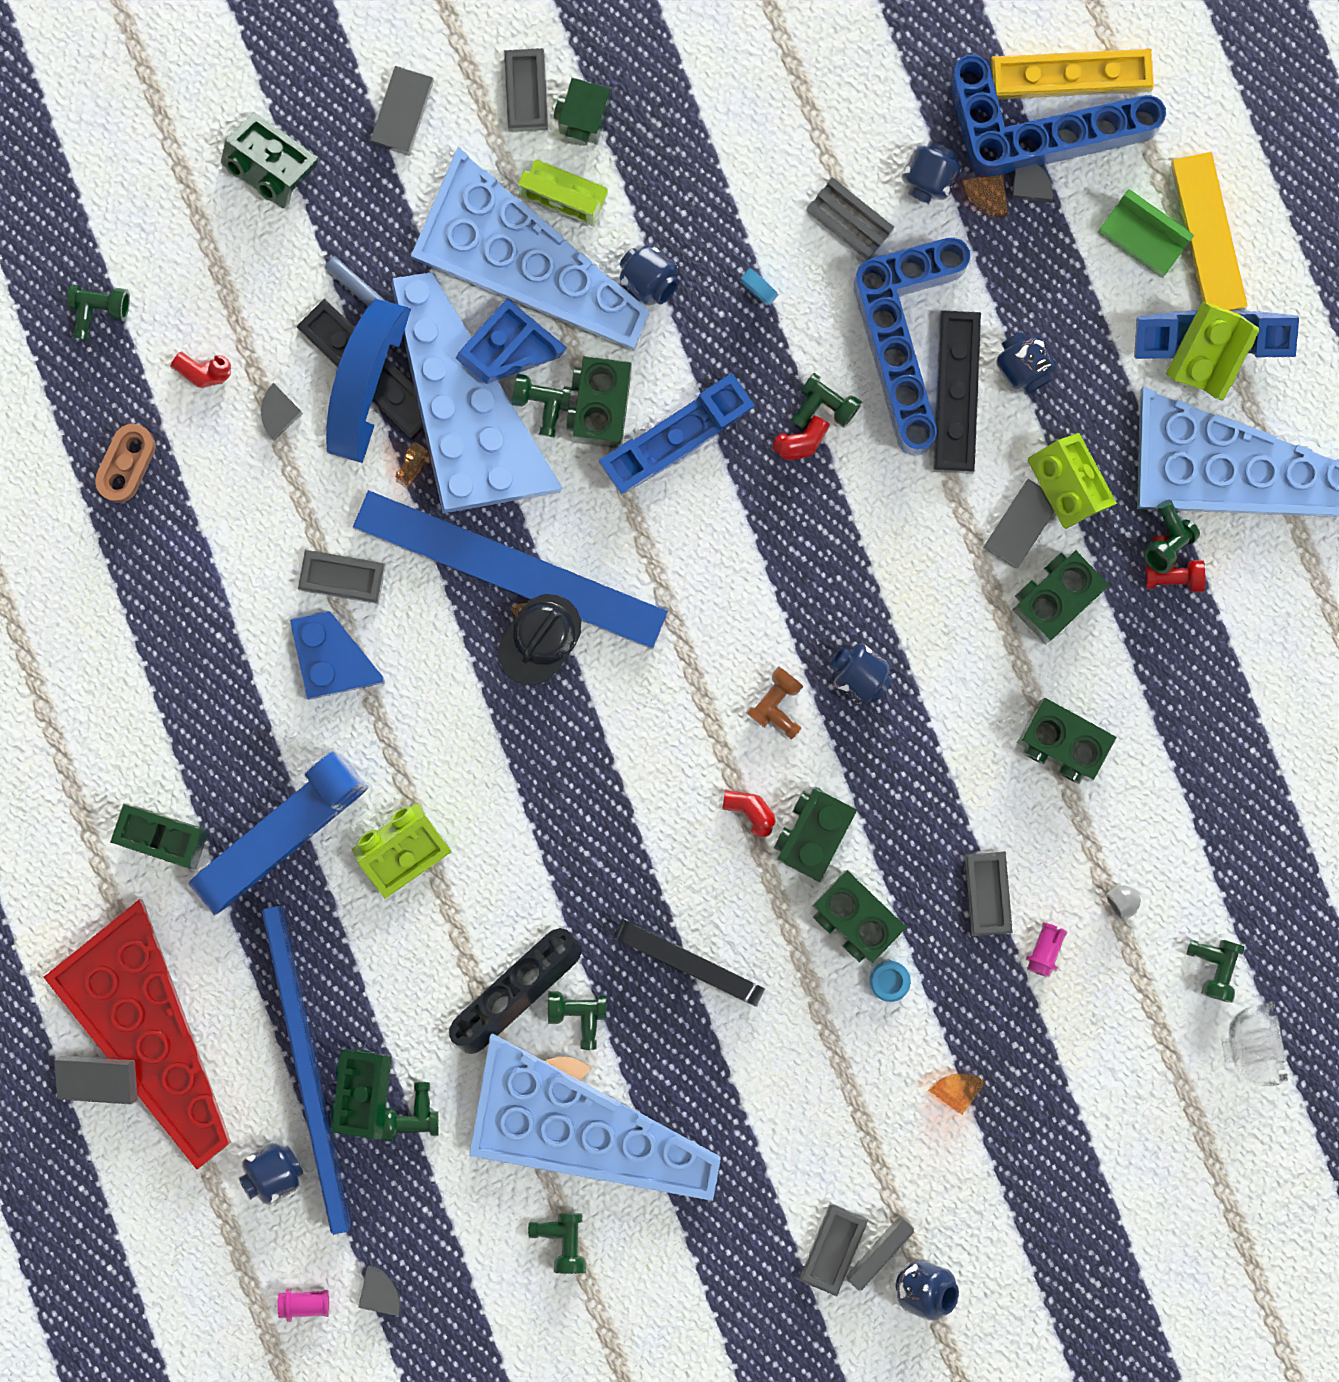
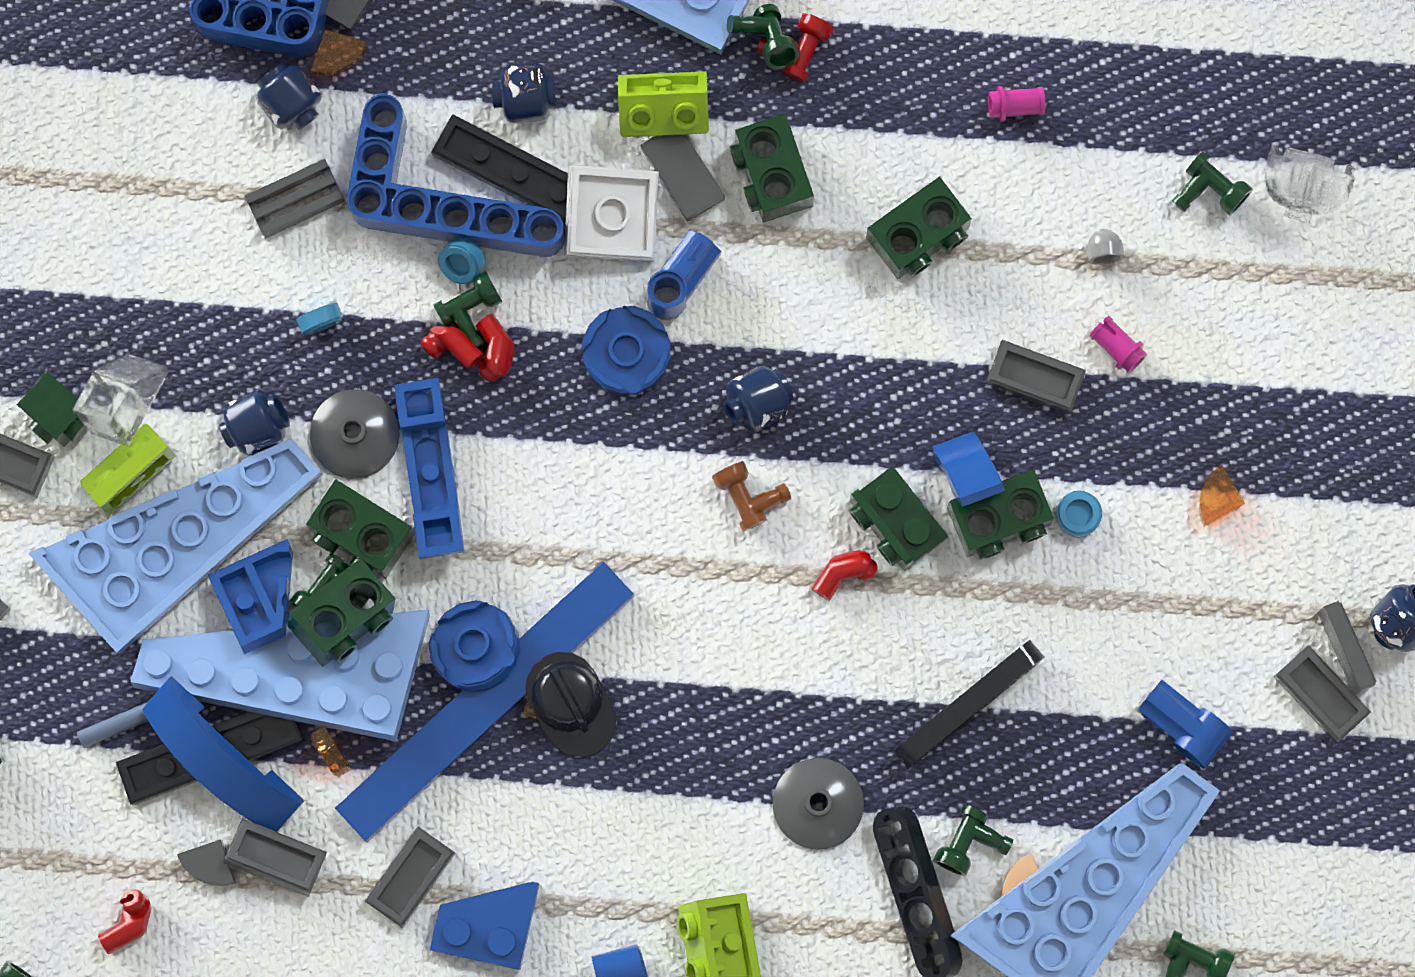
camera: 60 degrees left, 5 degrees down
(306, 461) = (275, 857): none -> dark grey tile
(526, 410) = (334, 606): none -> dark green brick
(550, 539) = (474, 646): none -> blue tile
(574, 881) = (812, 827): none -> dark grey dish
(618, 157) = (119, 397): none -> clear slope
(675, 380) = (358, 455): none -> dark grey dish
(753, 1157) = (1194, 730): none -> blue piece
(791, 405) = (453, 341): none -> red arm
(851, 547) = (626, 350): none -> blue tile
(861, 378) = (461, 260): none -> dark azure tile
(881, 873) = (968, 468): none -> blue slope
(938, 563) = (683, 273): none -> blue piece
(958, 481) = (611, 213): none -> white tile
(1212, 772) = (1015, 102): none -> dark pink pin

